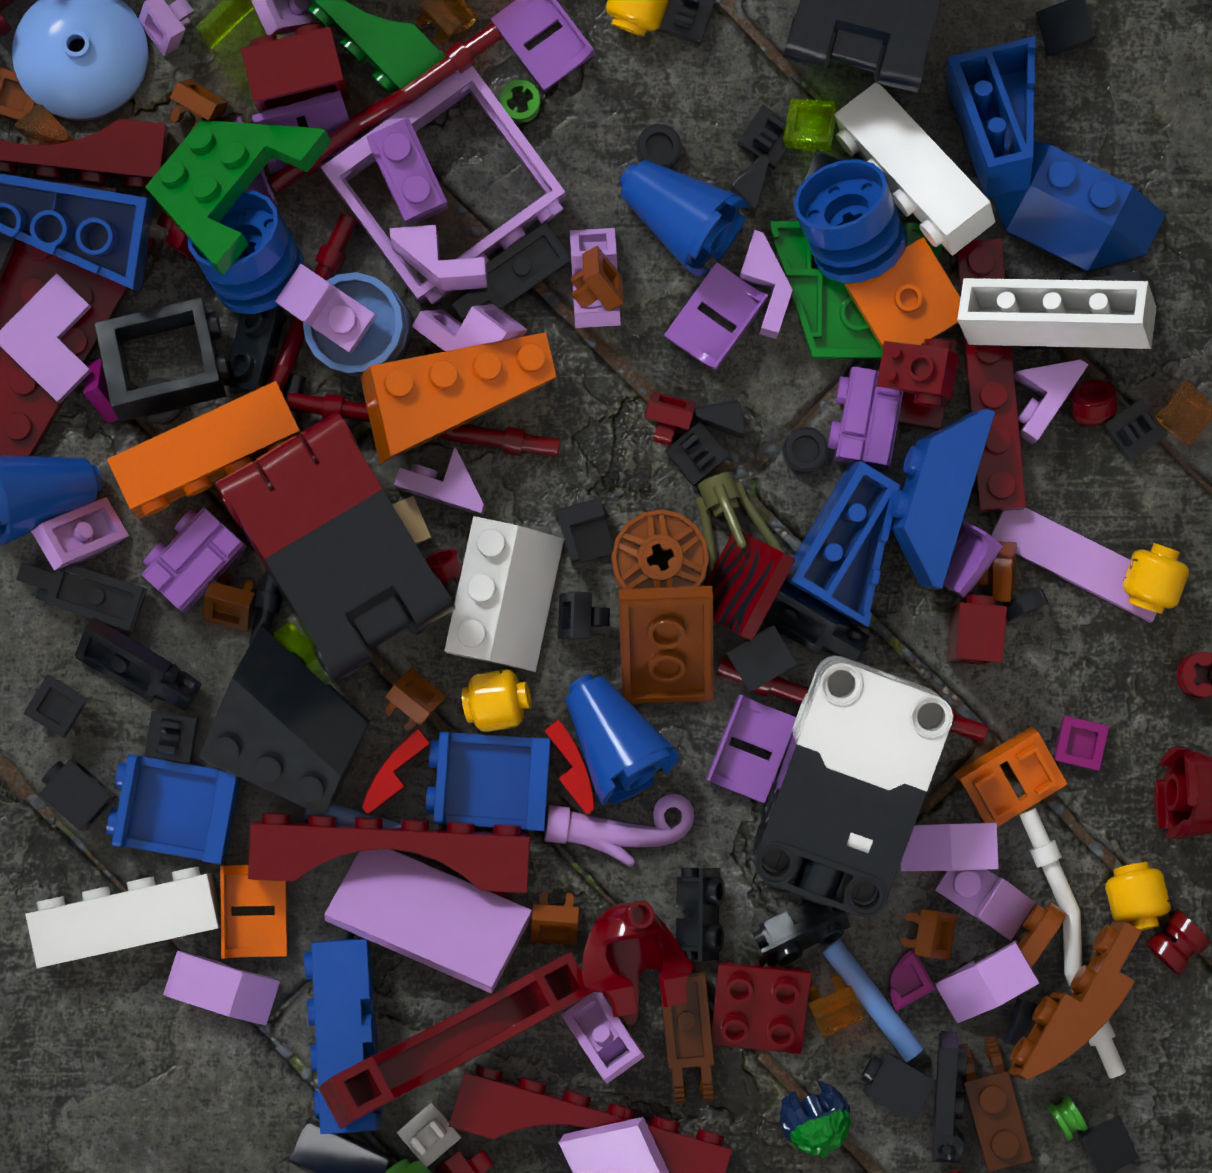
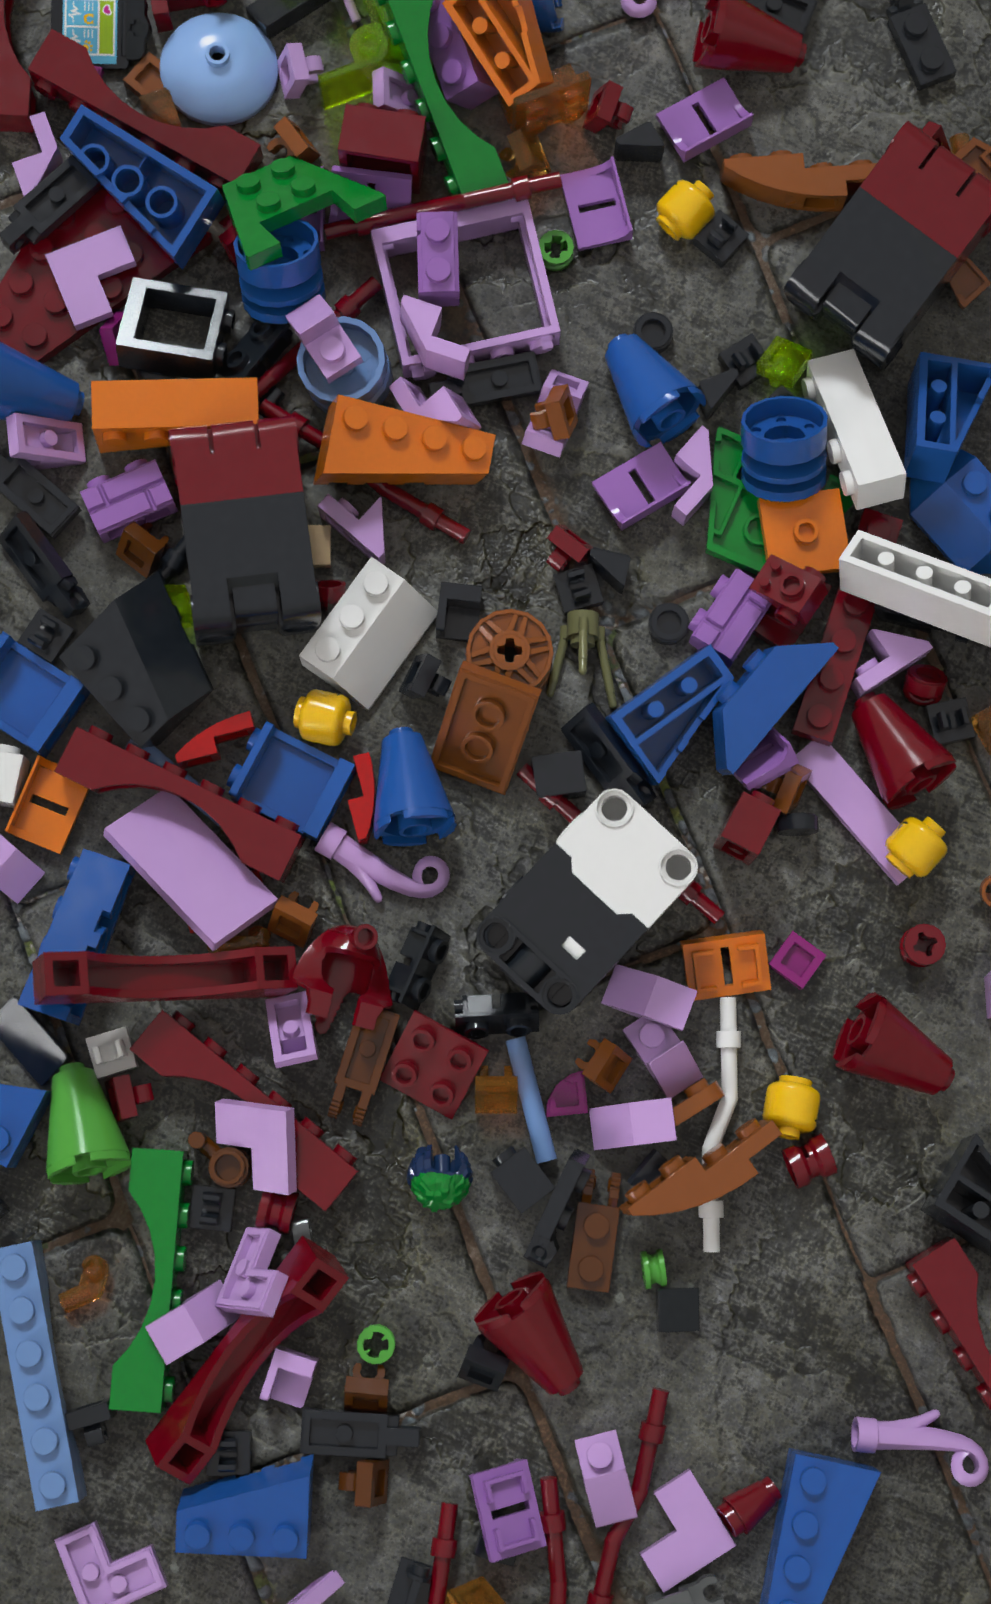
camera: 20 degrees right, 5 degrees down
(414, 697) = (259, 687): dark orange tile -> none
(526, 961) = (257, 937): none -> clear orange arm
(742, 770) = (501, 859): medium lavender piece -> none
(747, 584) = (572, 707): dark red tile -> none
(1096, 484) = (899, 750): none -> dark red cone

